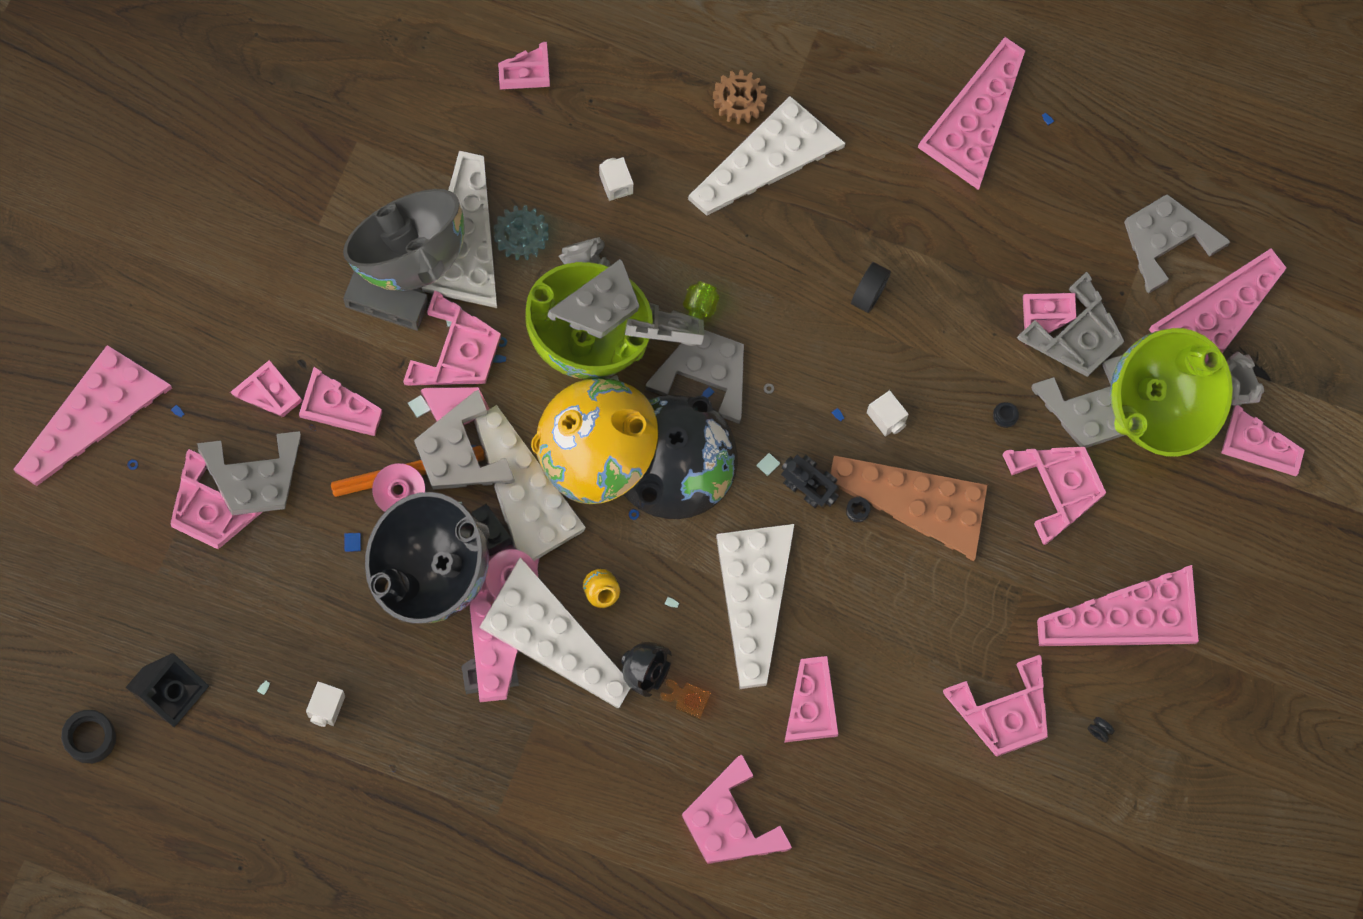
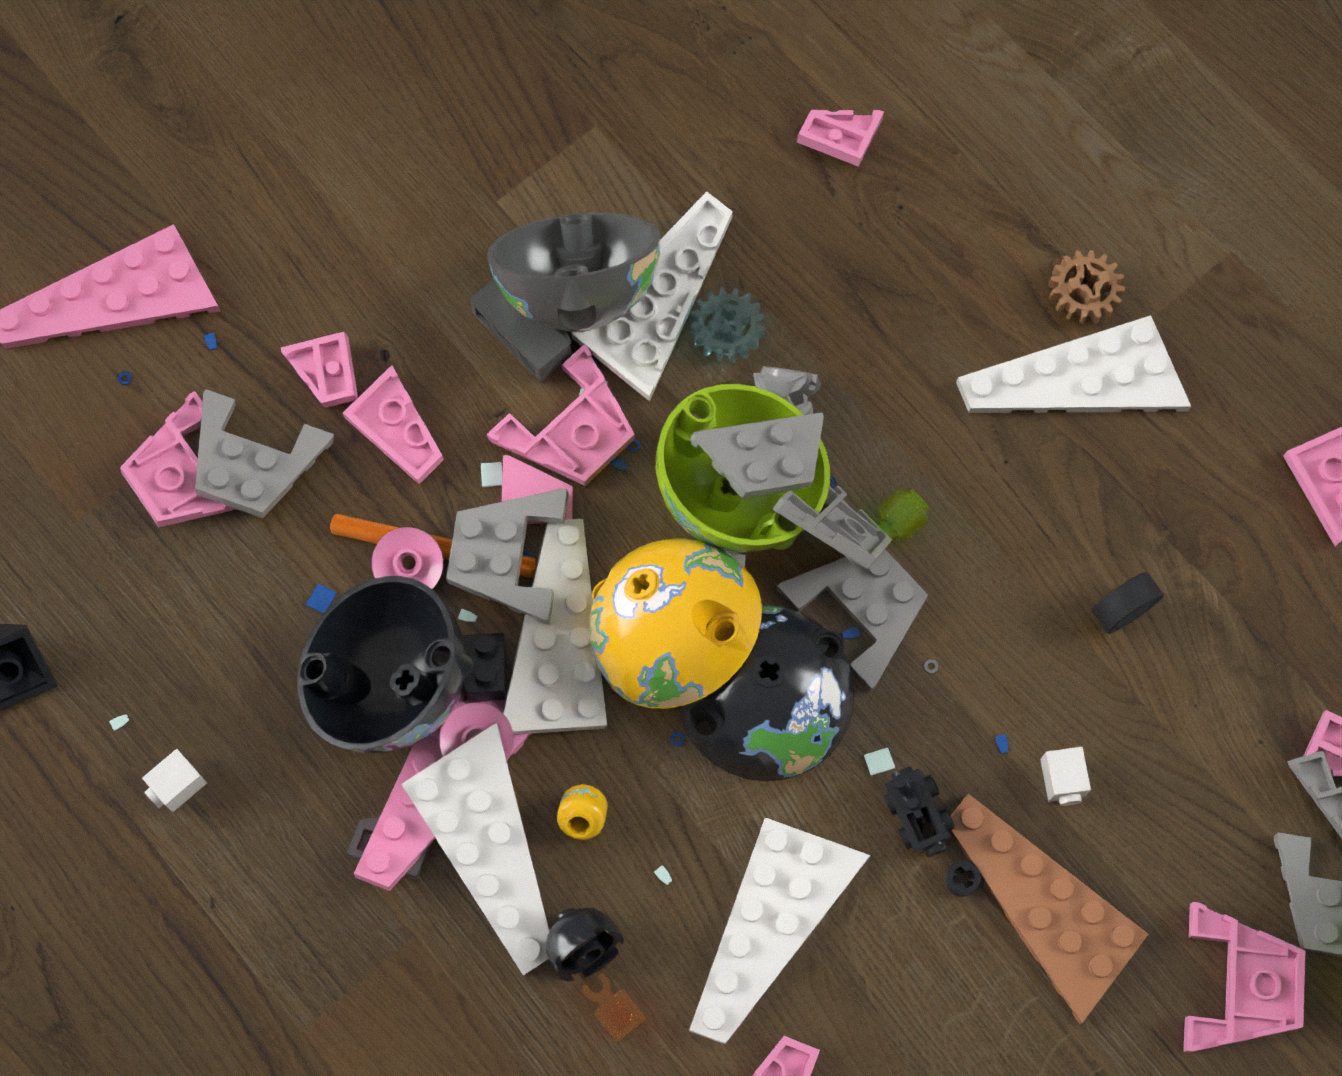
camera: 35 degrees right, 0 degrees up
(616, 178) = (878, 314): white brick -> none
(1005, 415) = (1221, 854): black plate -> none

